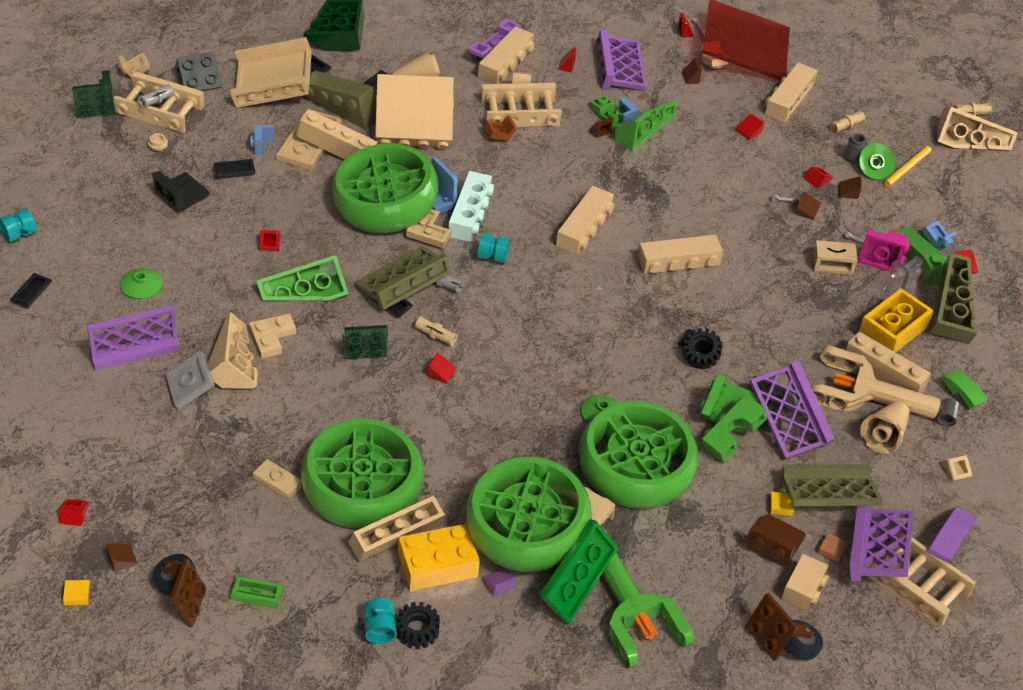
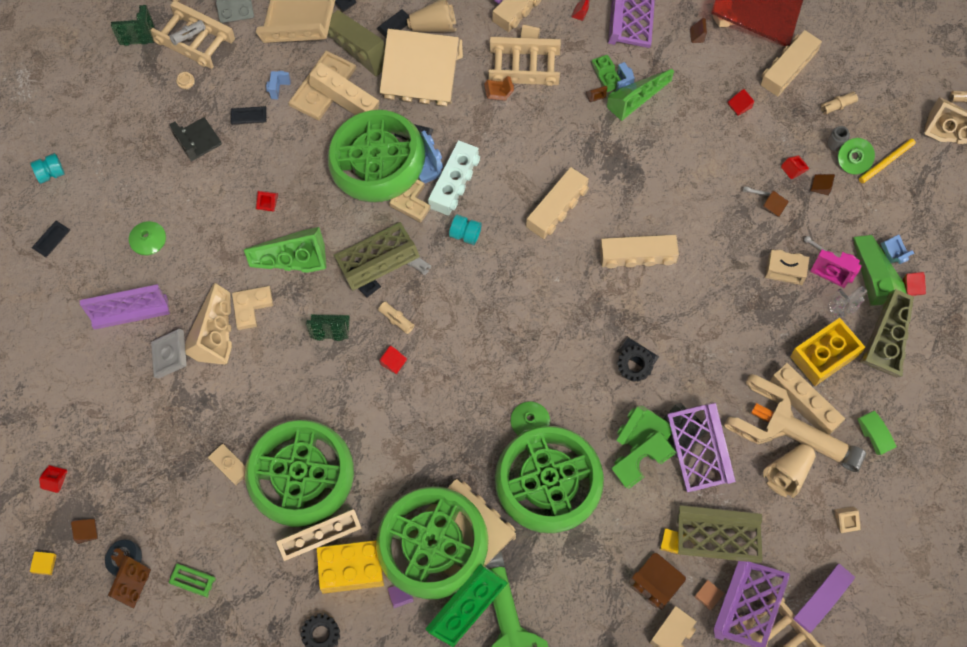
camera: 15 degrees right, 20 degrees up
(380, 620) = (287, 628): teal wheel -> none

